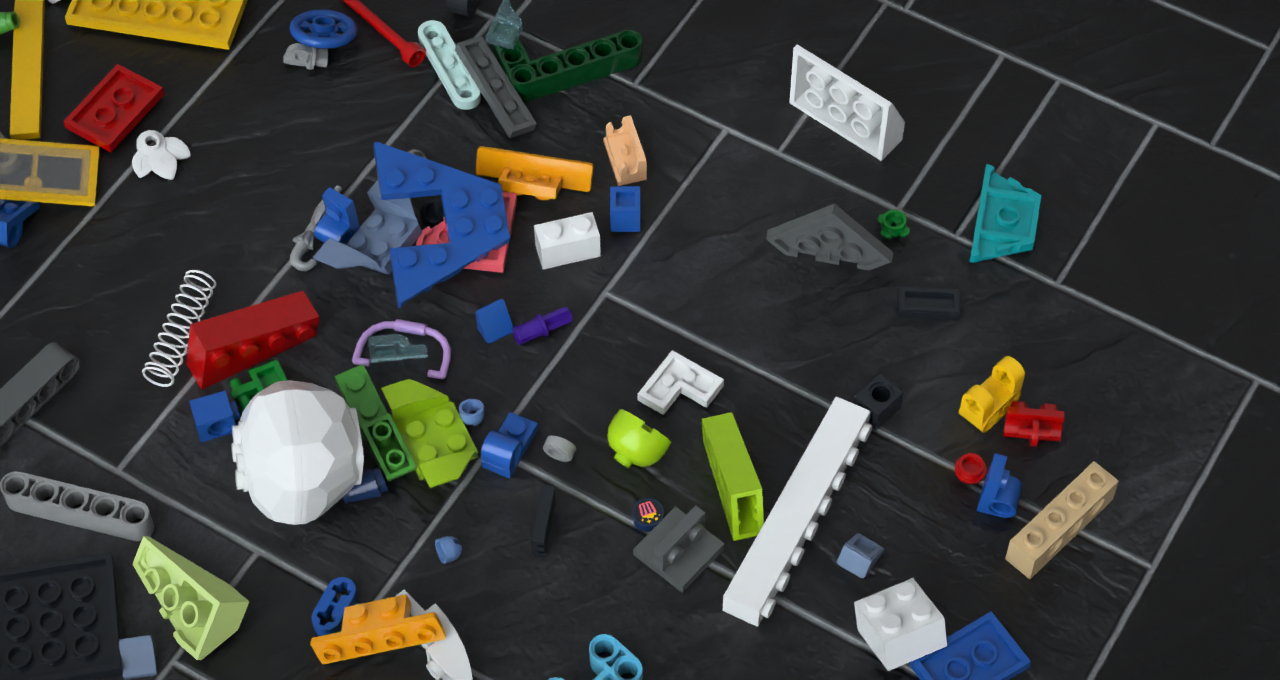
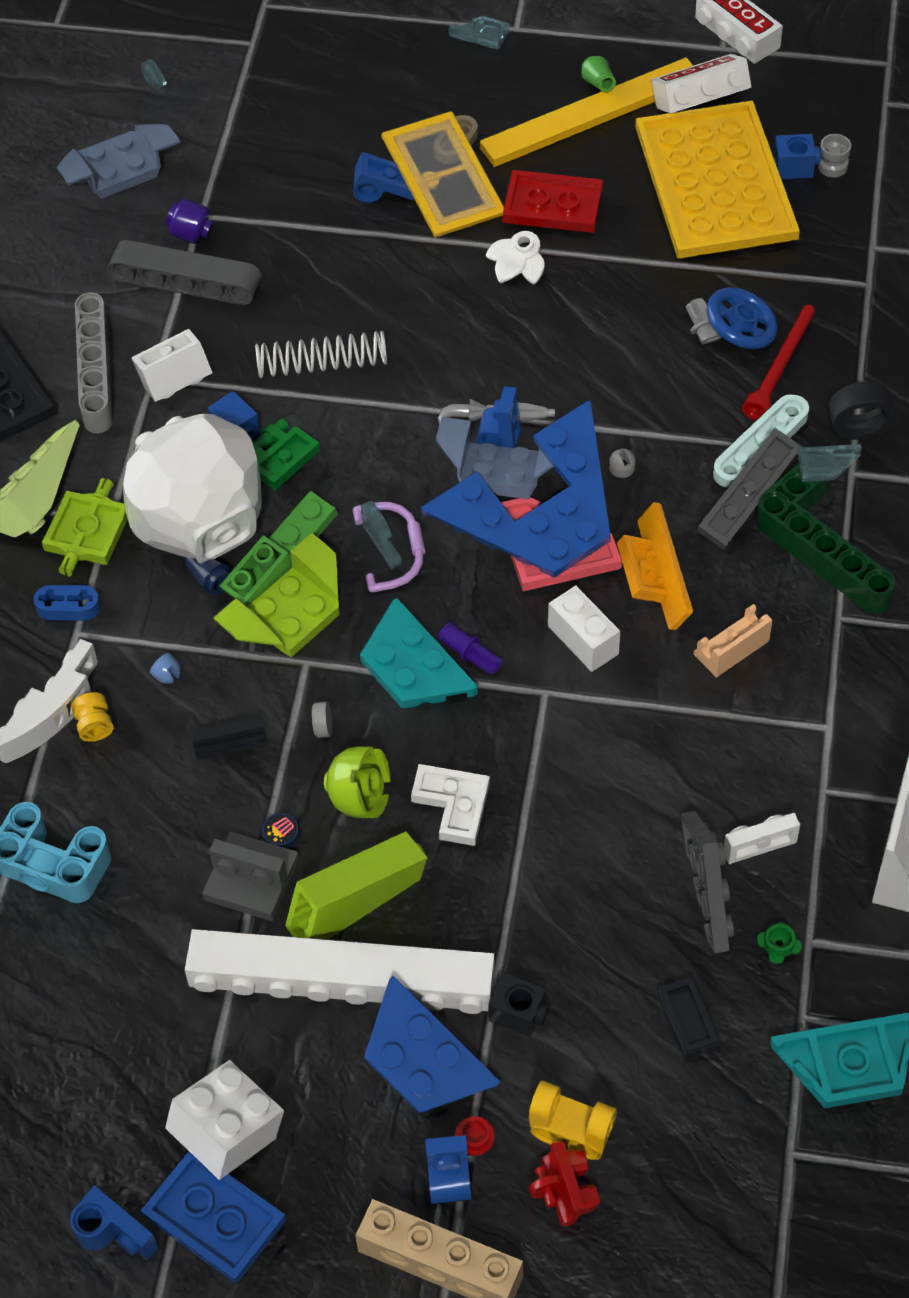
camera: 70 degrees right, 0 degrees up
(126, 441) = (172, 365): none -> white brick
(248, 336) = (332, 409): red wedge -> none
(263, 566) = (86, 527): none -> lime plate
(377, 629) = (41, 636): light orange bracket -> none
(466, 409) = (333, 626): medium blue hinge -> none
(472, 618) = (92, 718): none -> yellow wheel
(494, 321) = (453, 604): blue slope -> none
(506, 447) = (308, 676): blue plate -> none
(530, 371) = (412, 662): none -> teal wing
(625, 209) = (648, 663): blue brick -> none
(805, 189) = (761, 838): none -> white plate
(859, 555) = (316, 1057): sand blue slope -> none
(895, 476) = (421, 1054): none -> blue wing

